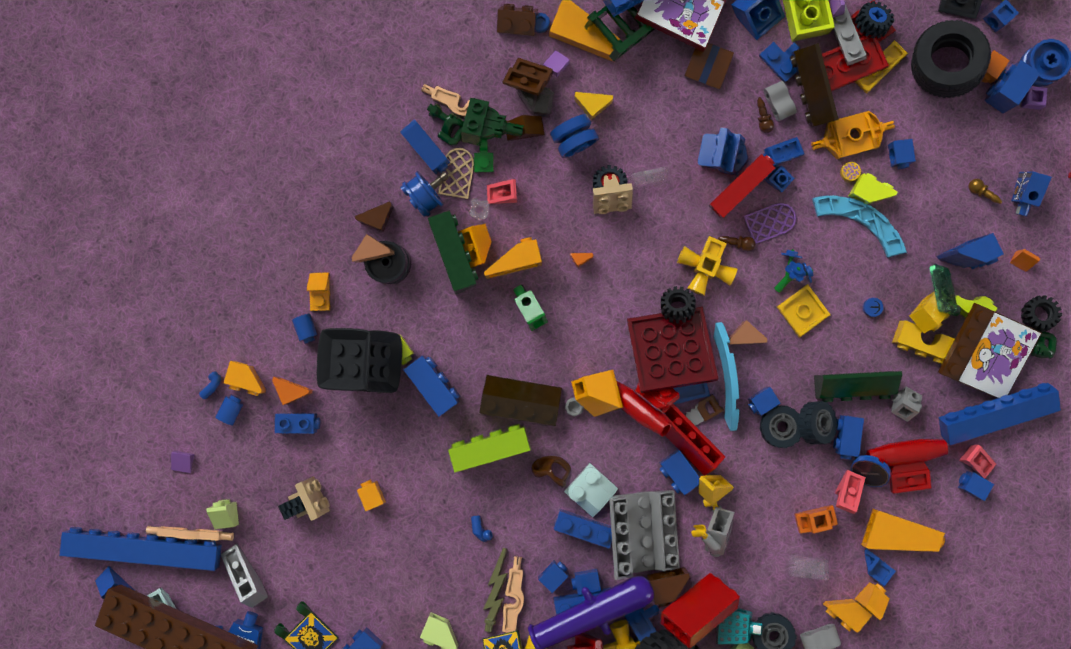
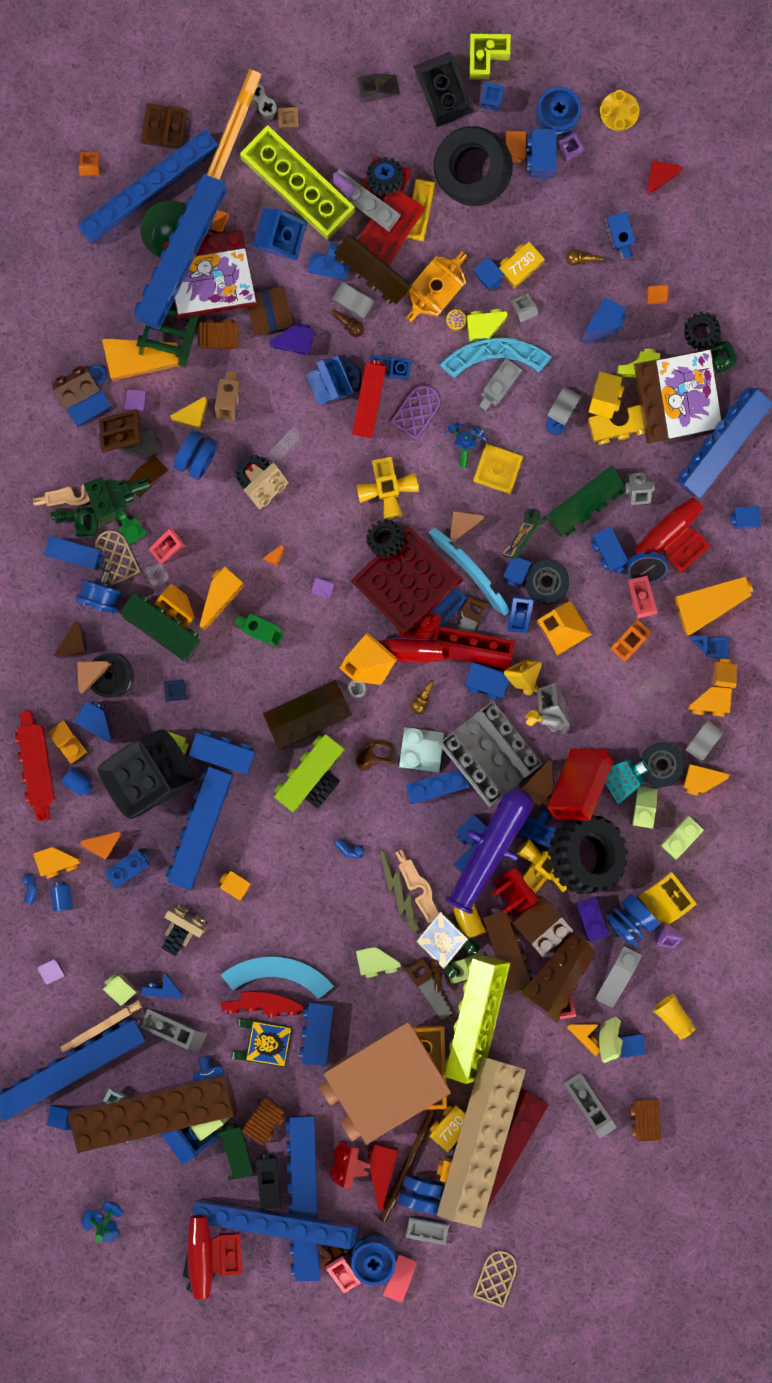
camera: 40 degrees left, 0 degrees up
(261, 542) = (169, 989): none -> blue slope
(281, 293) = (36, 766): none -> red hinge
(335, 607) = (271, 1003): none -> red slope
(351, 291) = (95, 720): none -> blue slope
(361, 584) = (281, 968): none -> medium azure tile
(375, 431) = (199, 829): none -> blue brick
(430, 309) = (175, 690): none -> dark blue tile
(491, 469) = (322, 789): none -> black tyre
(516, 44) = (89, 408): none -> blue tile
(553, 575) = (439, 844): blue brick -> none
(601, 309) = (323, 587): none -> medium lavender slope
(613, 453) = (419, 705): none -> pearl gold bar
(630, 109) = (227, 397): none -> medium nougat torso
(656, 55) = (218, 335): none -> dark orange brick
(713, 100) = (295, 339): none -> dark purple slope
(743, 437) = (520, 614): none -> blue slope
(746, 243) = (408, 445): reddish brown bar -> none
(769, 472) = (563, 627): none -> light orange slope
(785, 151) = (386, 342): blue plate -> none
(790, 377) = (523, 534): none -> flag
(817, 423) = (574, 557): black wheel -> none
(850, 245) = (499, 384): none -> light grey hinge
(891, 297) = (564, 405): none -> light grey axle
(911, 199) = (524, 307): none -> light grey slope
(933, 163) = (521, 264): none -> yellow brick
(944, 290) = (604, 368): clear green plate -> none
(978, 460) = (735, 494): coral slope -> none

